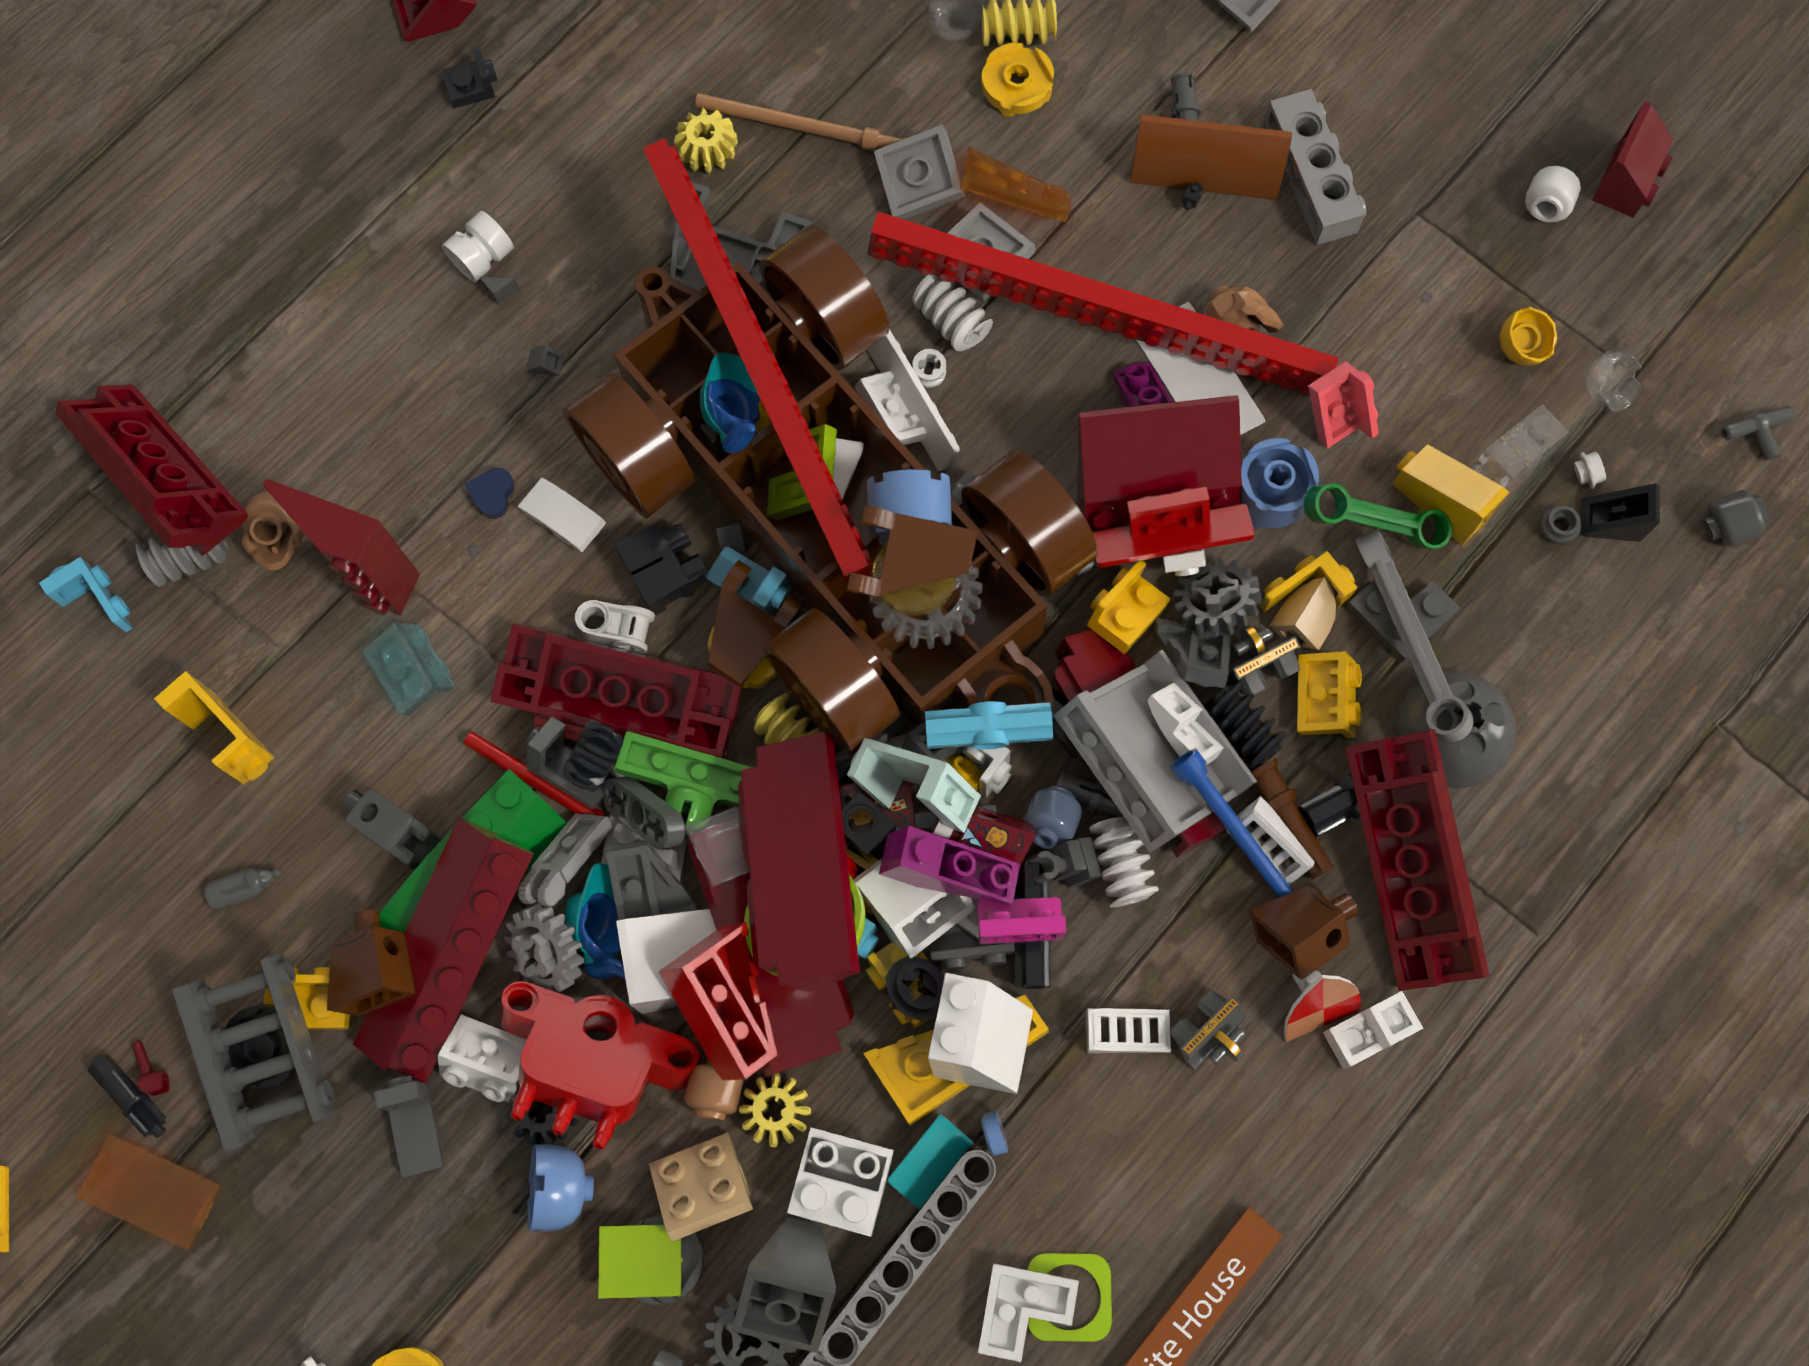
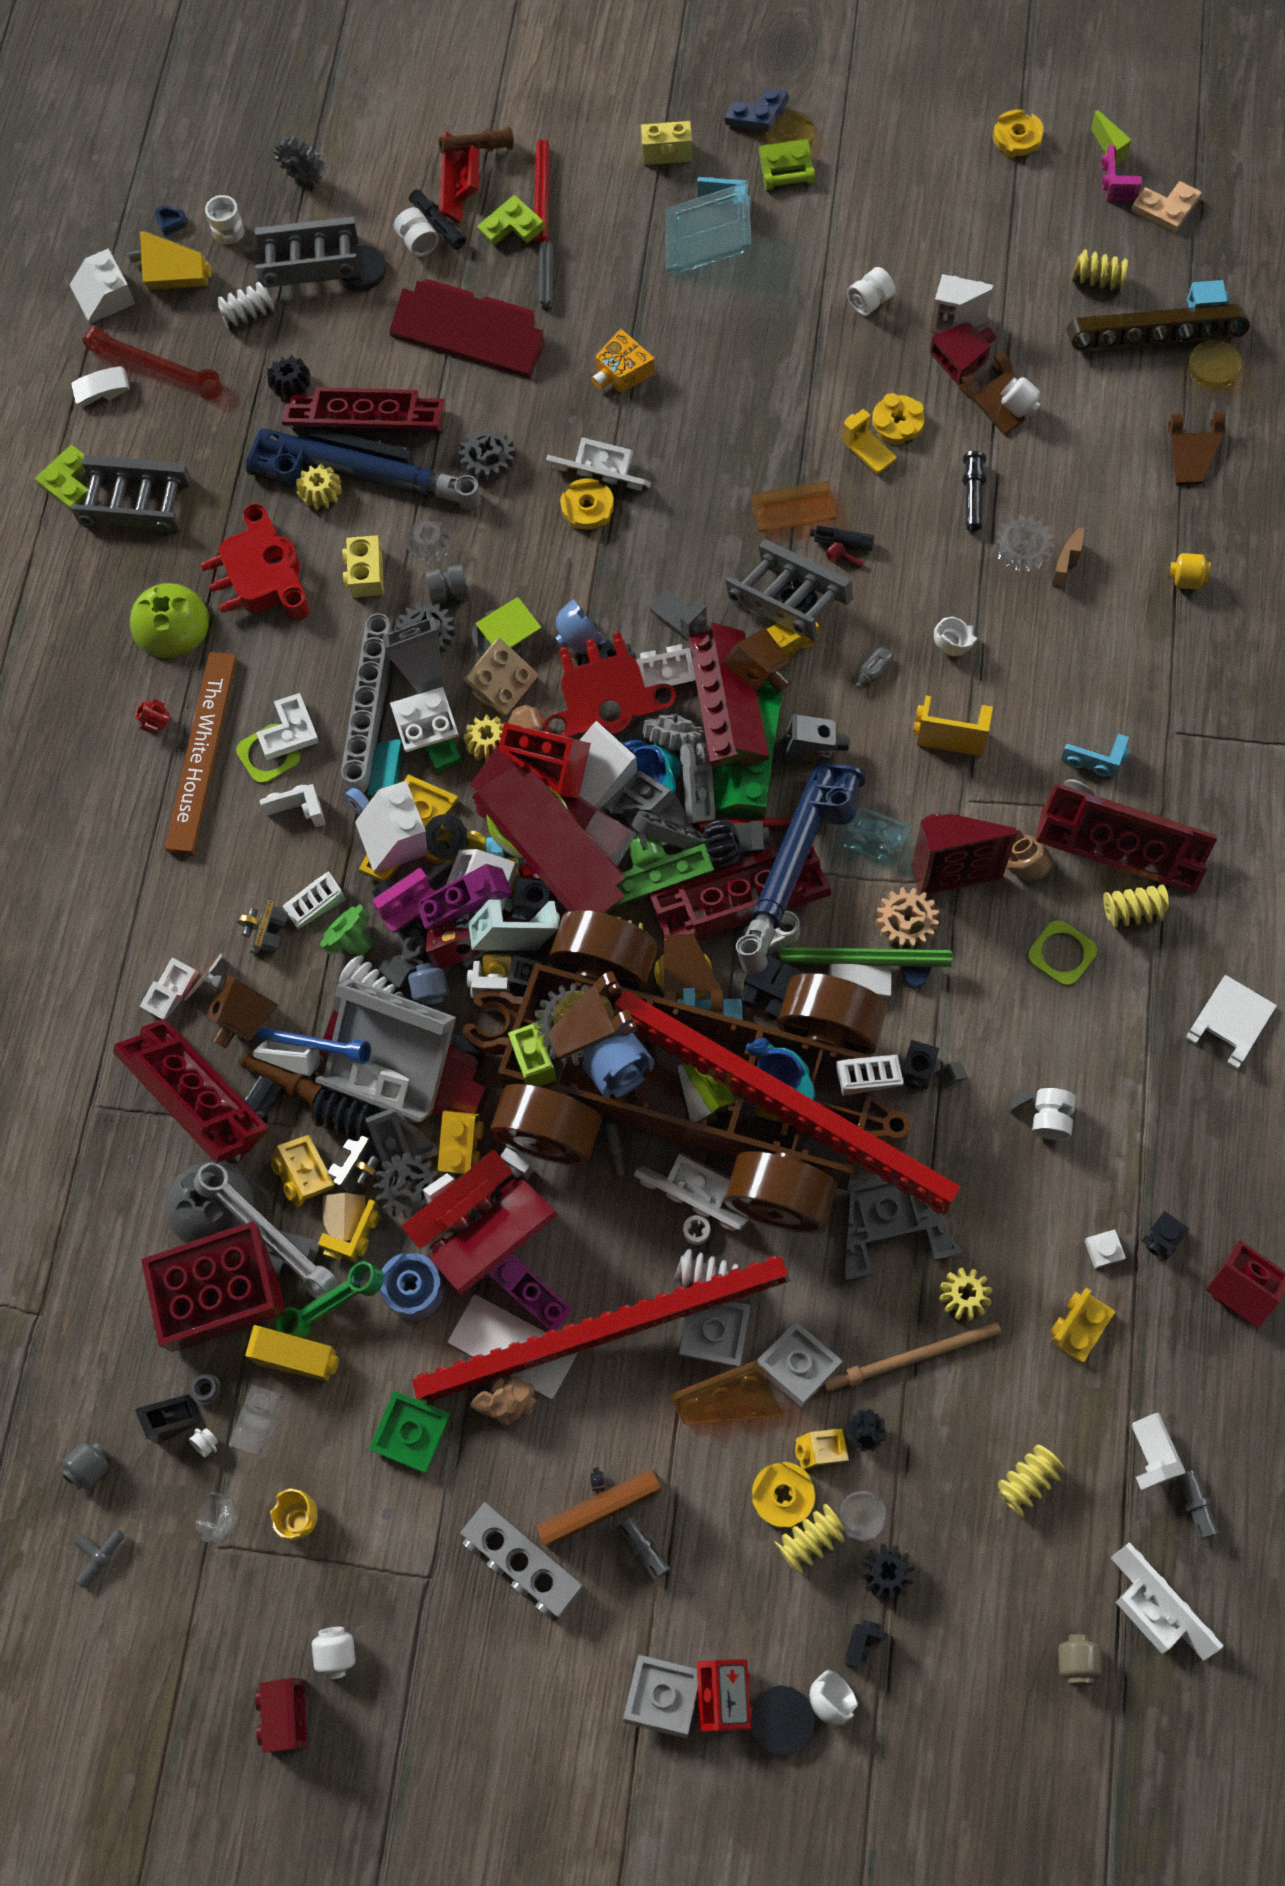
camera: 150 degrees right, 5 degrees down
(115, 853) = (954, 636): none -> white hair
(204, 399) = (1136, 905): none -> light yellow piece
(218, 234) = (1234, 1016): none -> white flag
(354, 428) = (1062, 927): none -> lime piece
(430, 750) = (826, 799): none -> dark blue piece
(442, 558) = (919, 921): none -> light nougat gear
(535, 531) = (870, 957): none -> bright green axle
(537, 106) = (1105, 1249): none -> white plate
(569, 367) = (920, 1053): none -> black brick
(618, 54) = (1082, 1325): none -> yellow bracket
(660, 361) = (860, 1086): none -> white slope
(845, 1121) = (443, 755): none -> green plate
(896, 79) = (866, 1430): none -> black gear
(952, 92) = (821, 1448): none -> yellow bracket
(989, 725) = (490, 985): medium azure piece -> none
(1001, 583) = (533, 1060): none -> lime slope
(1058, 1164) = (300, 796): none -> white bracket
(1113, 949) = (348, 933): none -> bright green plant
(1343, 404) = (398, 1370): coral bracket -> none
(1363, 341) = (410, 1432): none -> green plate
(1506, 606) = (212, 1287): none -> dark red slope

